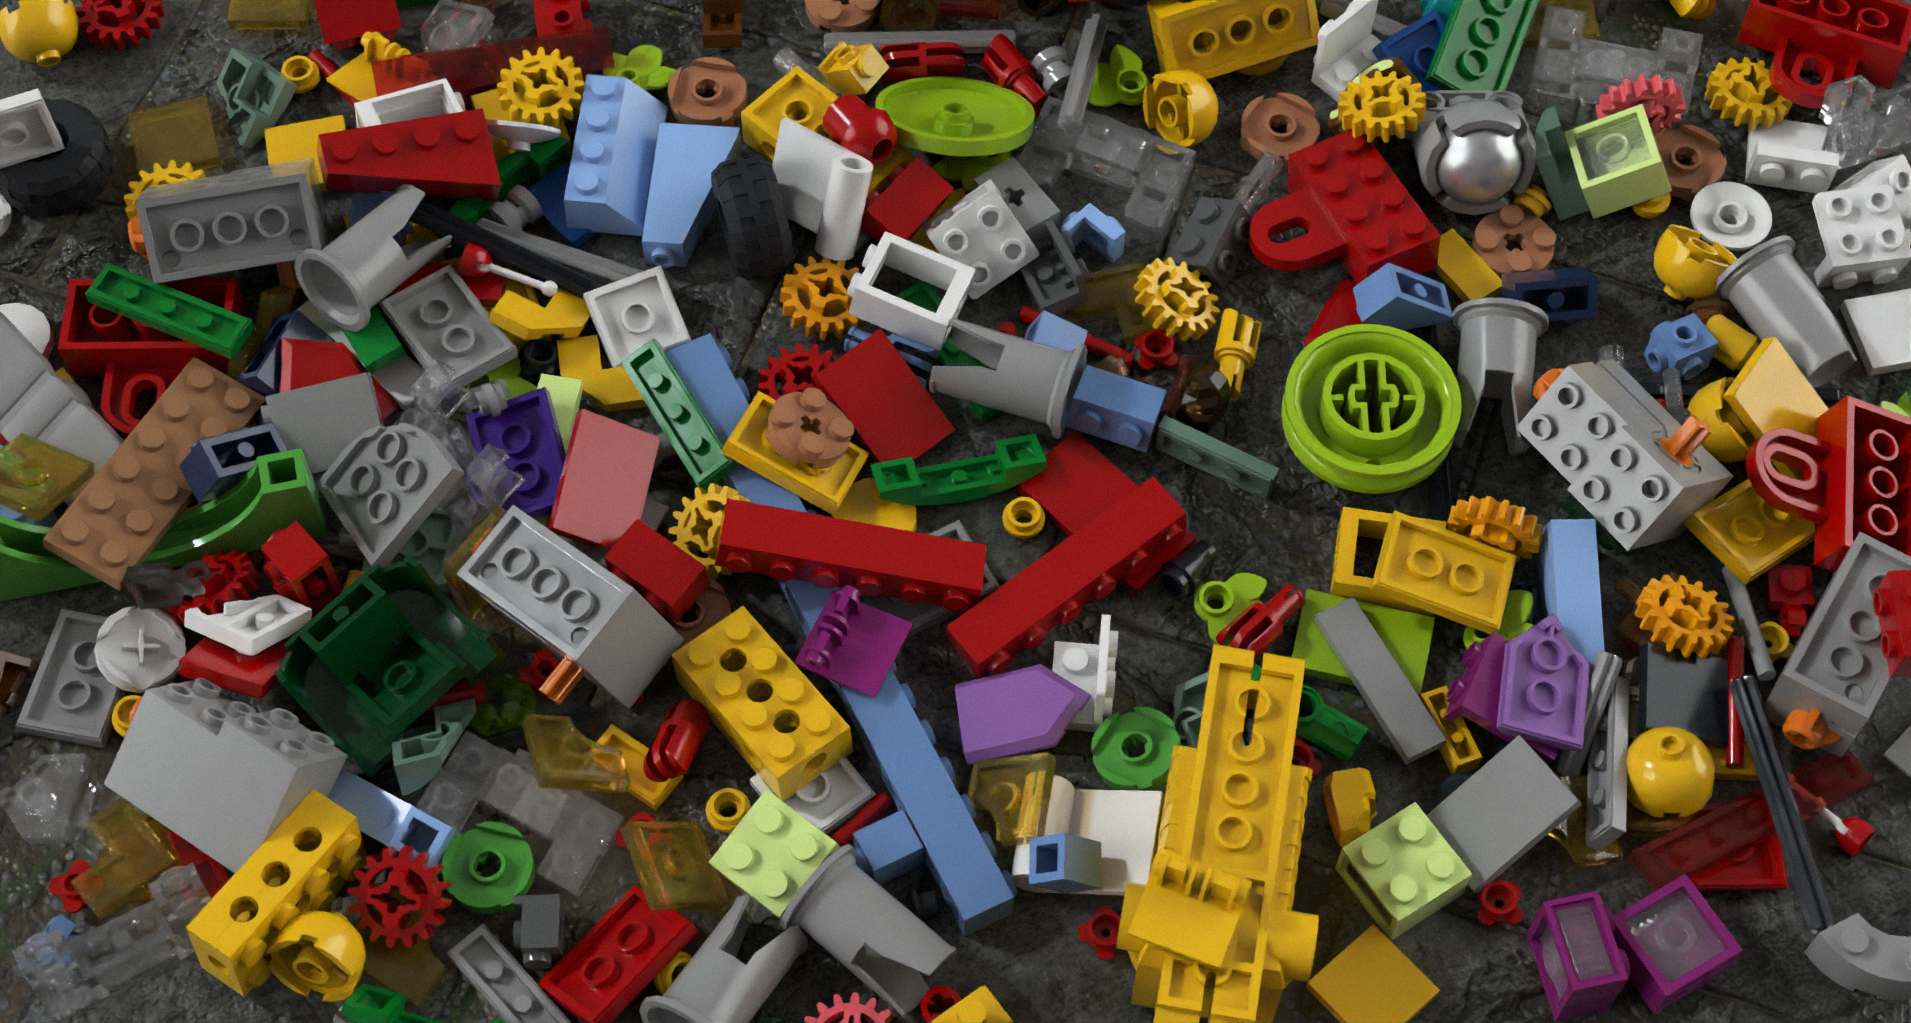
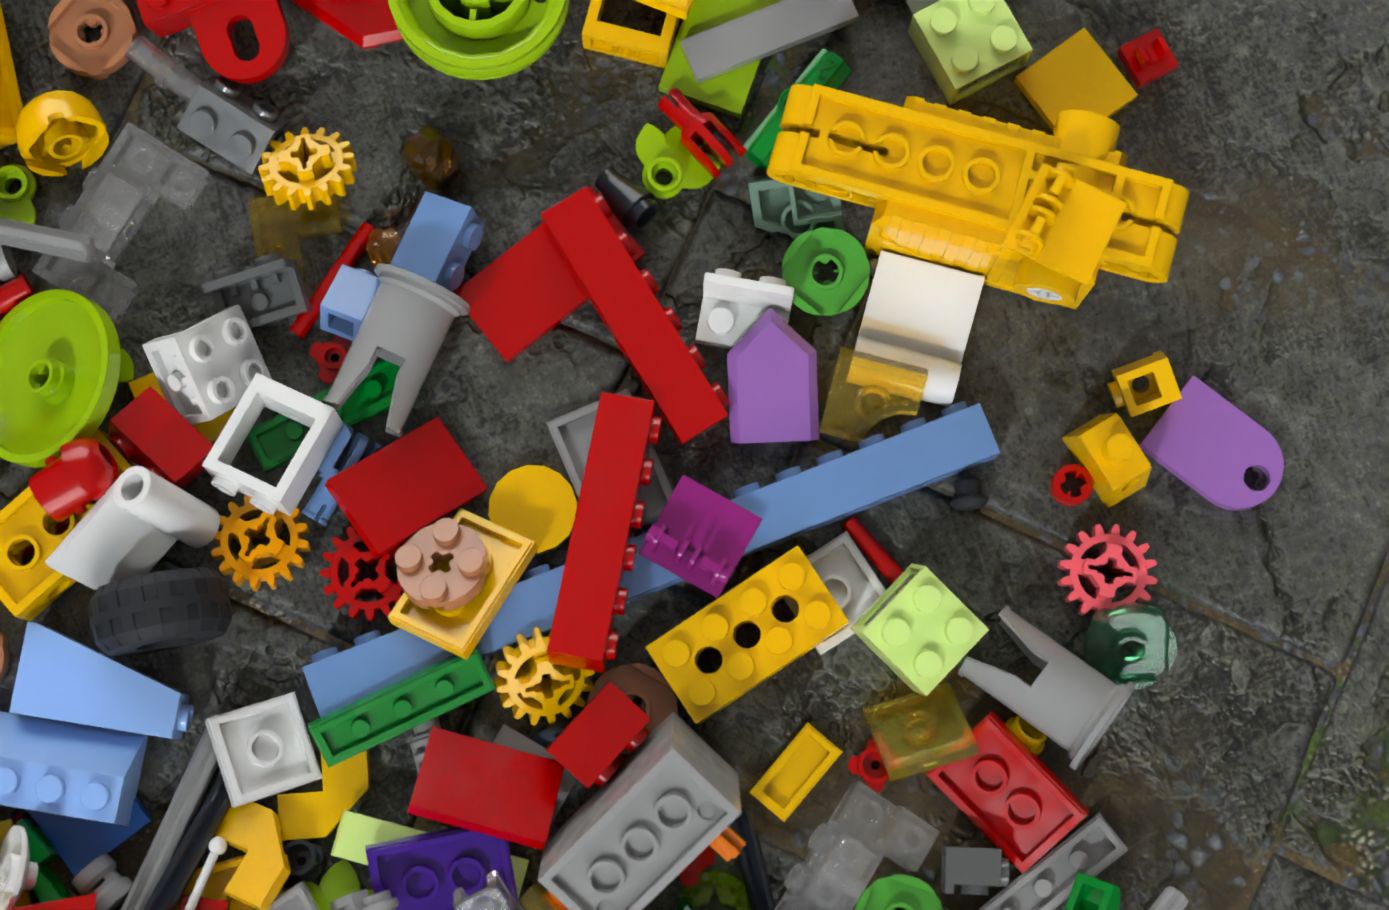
camera: 85 degrees left, 20 degrees up
(569, 759) = (802, 834): clear yellow tile -> none
(676, 741) = (782, 723): red arm -> none
(726, 798) = (866, 674): yellow plate -> none
(868, 930) = (1006, 542): light grey piece -> none
(888, 848) = (911, 523): medium blue brick -> none
(960, 480) = (498, 413): green slope -> none
(1023, 198) = (142, 322): light grey brick -> none
(1027, 508) = (542, 345): yellow plate -> none
(1065, 863) = (955, 349): brick -> none
(1090, 933) = (1005, 312): red plate -> none
(1097, 230) = (207, 238): light blue bracket -> none
(1155, 340) = (369, 208): red plate -> none
(1185, 364) = (377, 172): clear red hinge -> none
(1217, 458) = (503, 152): sand green tile -> none
(1236, 347) = (371, 116): yellow arm -> none
(1349, 803) = (895, 77): yellow rock -> none

